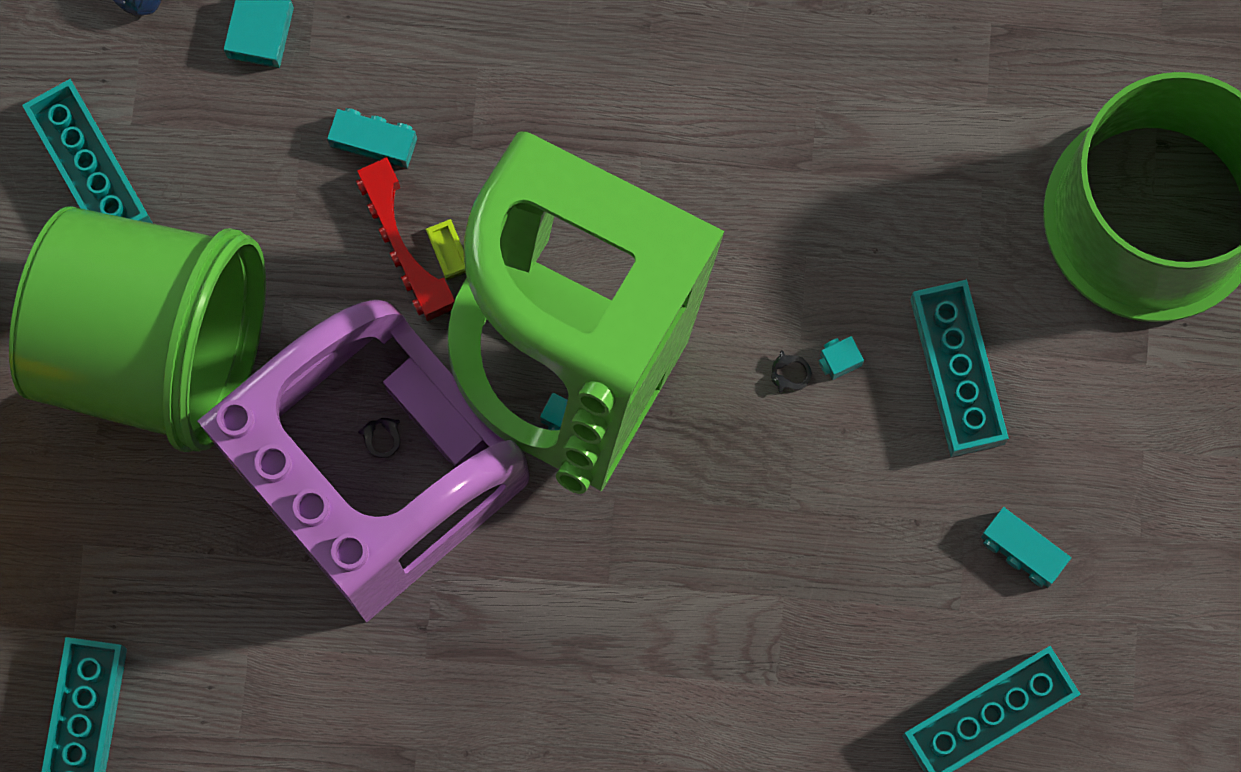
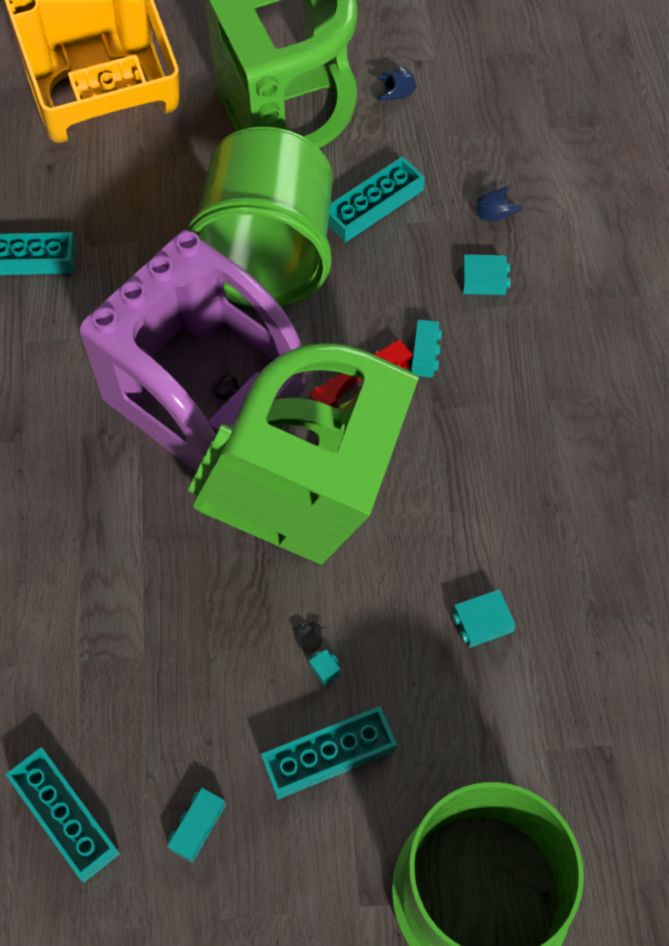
camera: 80 degrees right, 15 degrees down
(805, 142) = (483, 618): none -> teal brick

